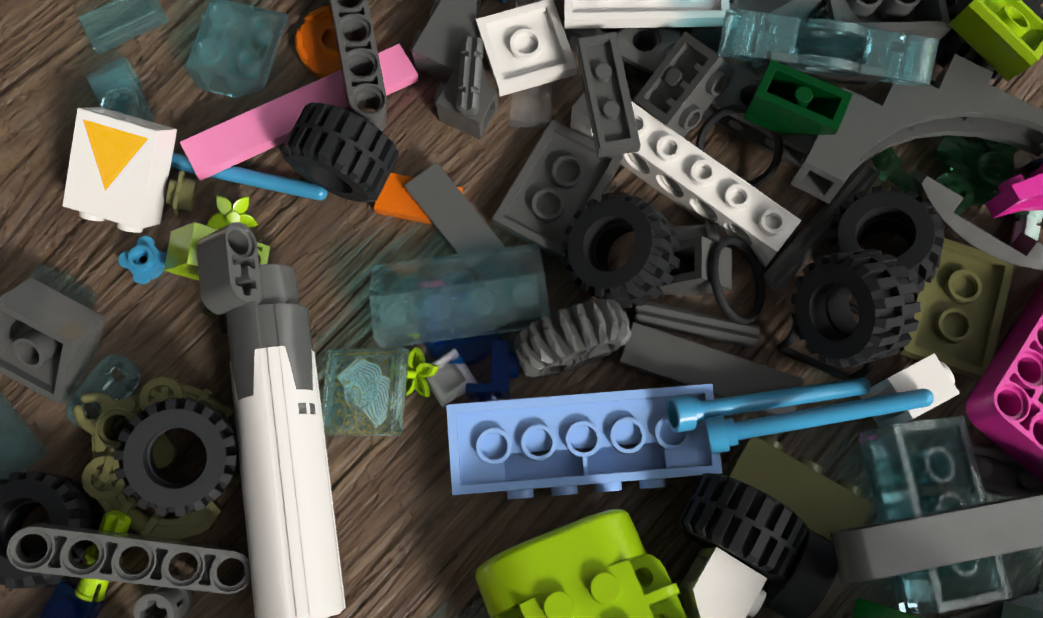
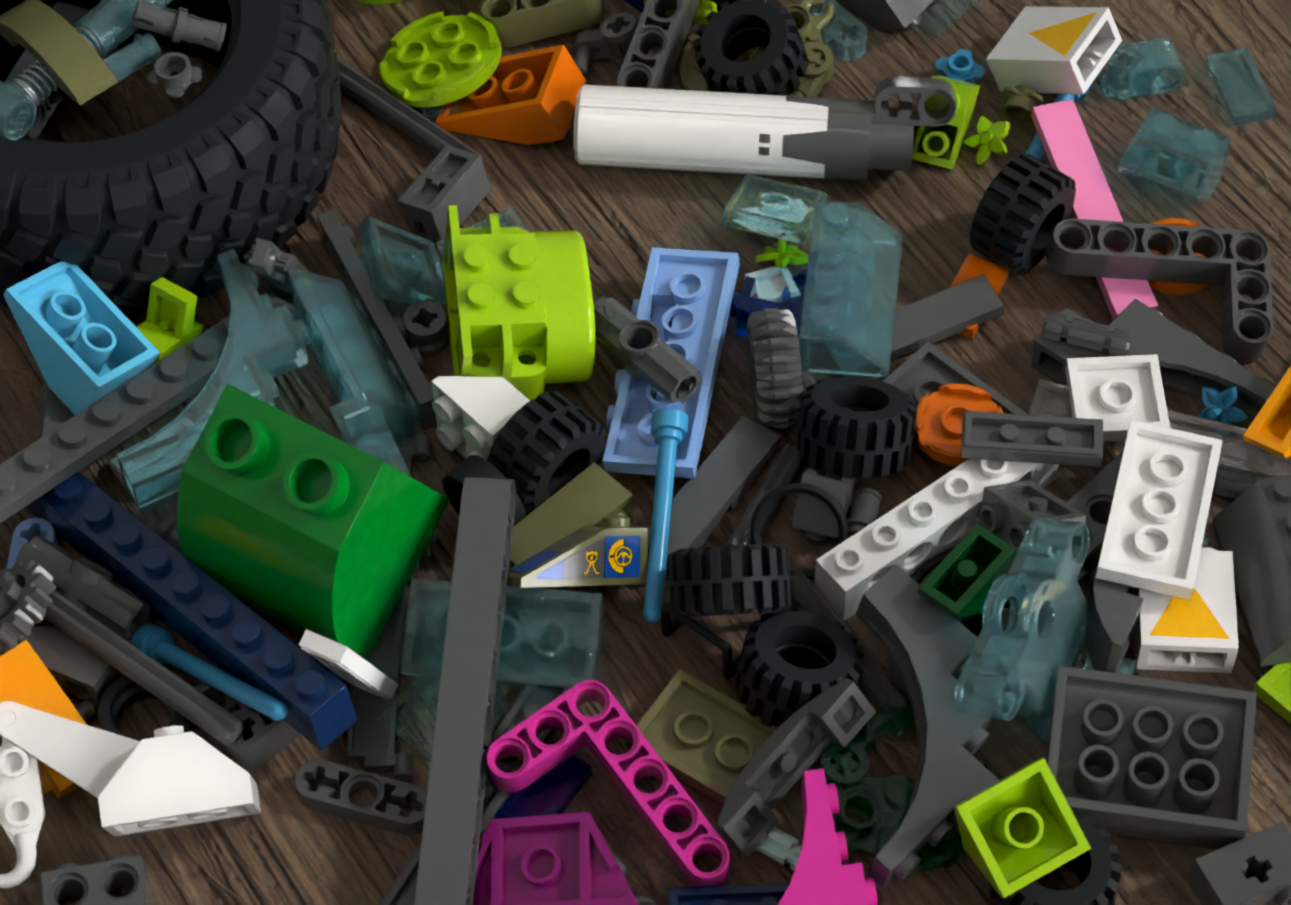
camera: 105 degrees right, 20 degrees down
(576, 175) = (940, 419): none -> orange tile
(619, 437) = (644, 351): none -> dark grey piece
(726, 433) = (638, 453): dark azure piece -> none
(855, 466) = (588, 558): none -> slope
(925, 374) = (631, 640): white brick -> none

